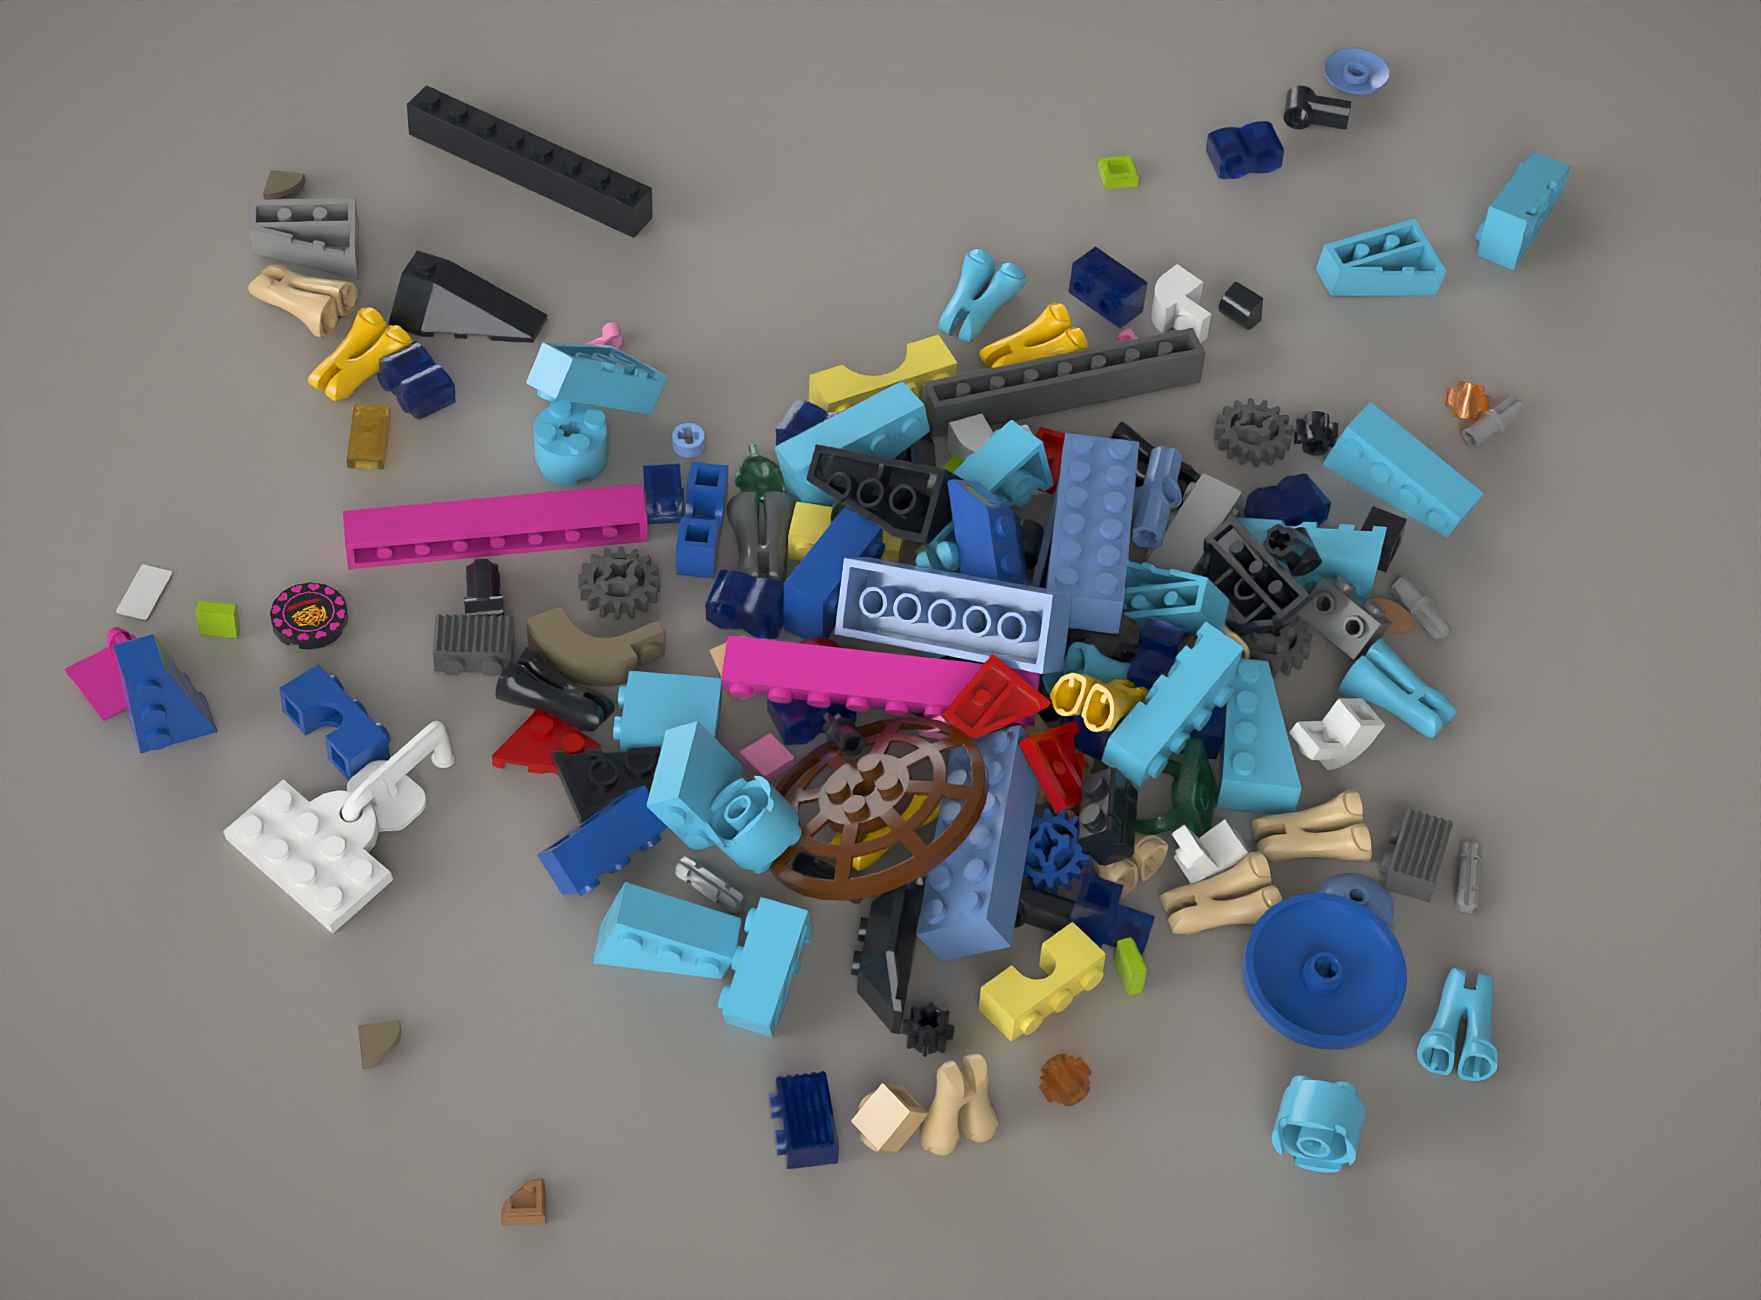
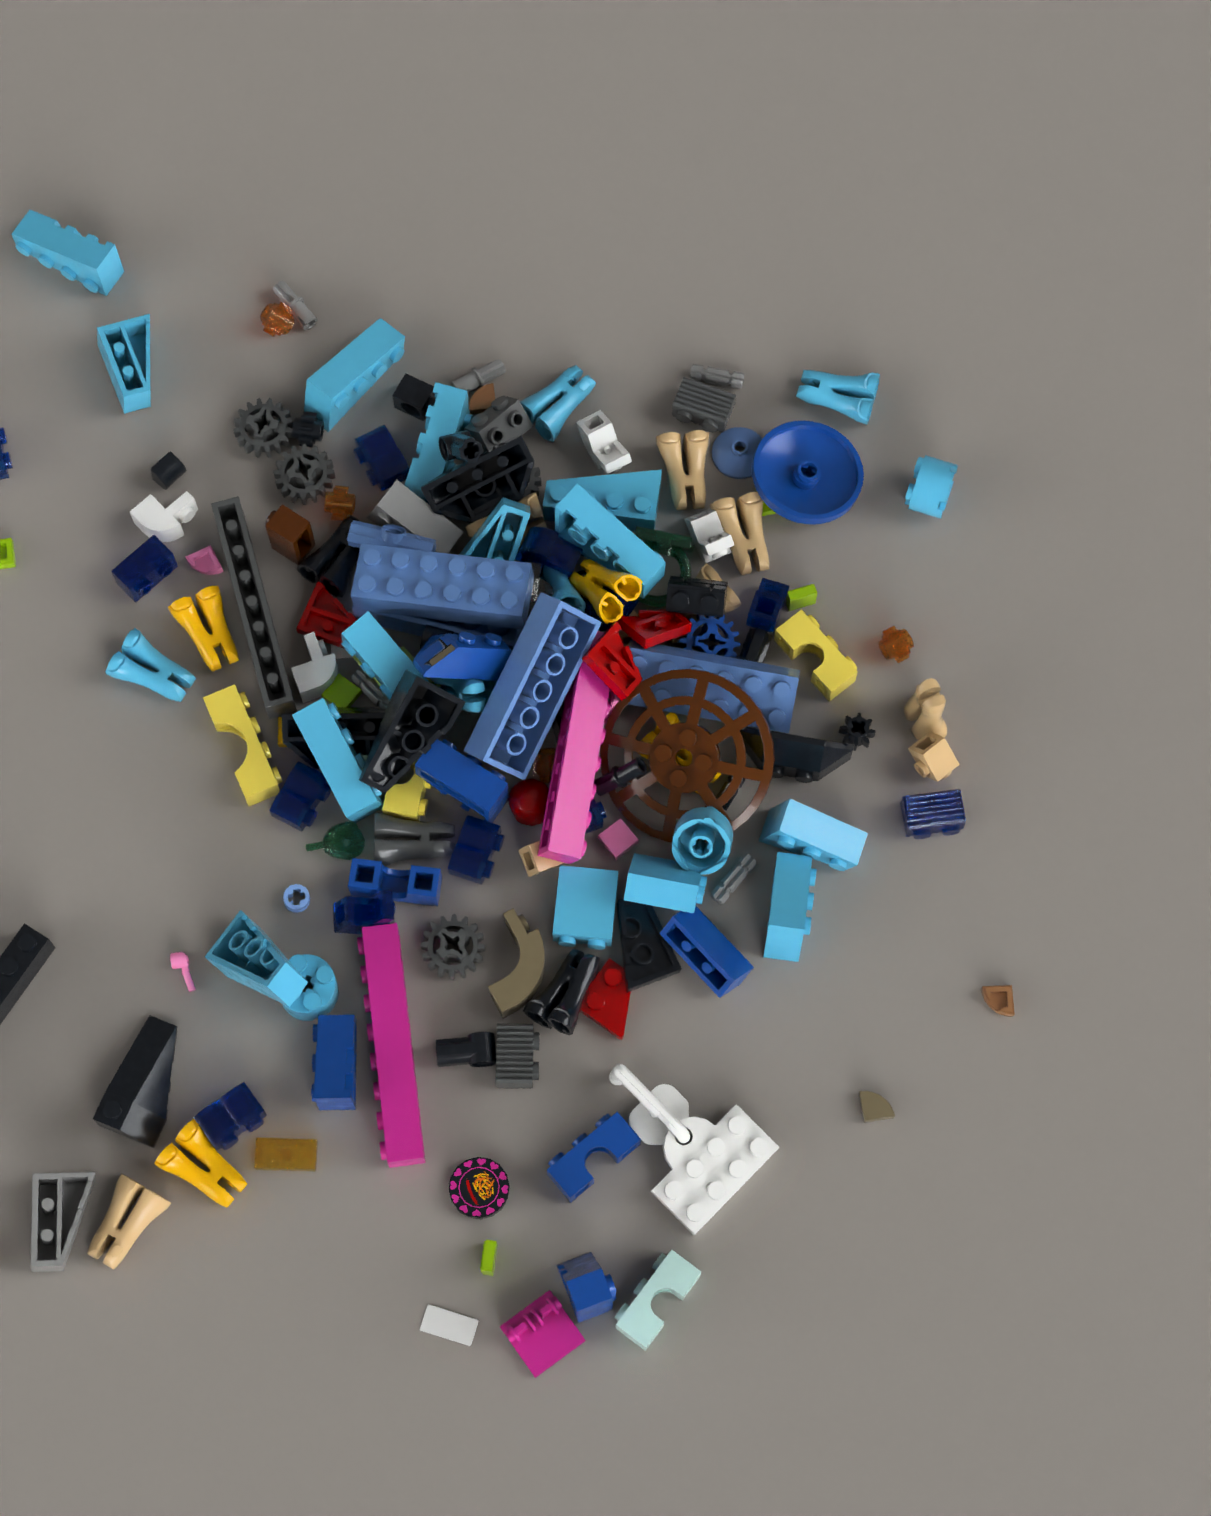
camera: 85 degrees left, 20 degrees up
(121, 769) = (671, 1275): none -> light aqua arch
(470, 465) = (335, 1062): none -> blue wedge
(1163, 407) = (290, 534): none -> reddish brown piece
(1217, 462) = (340, 503): none -> clear orange gear
(1312, 389) = (256, 420): none -> dark grey gear

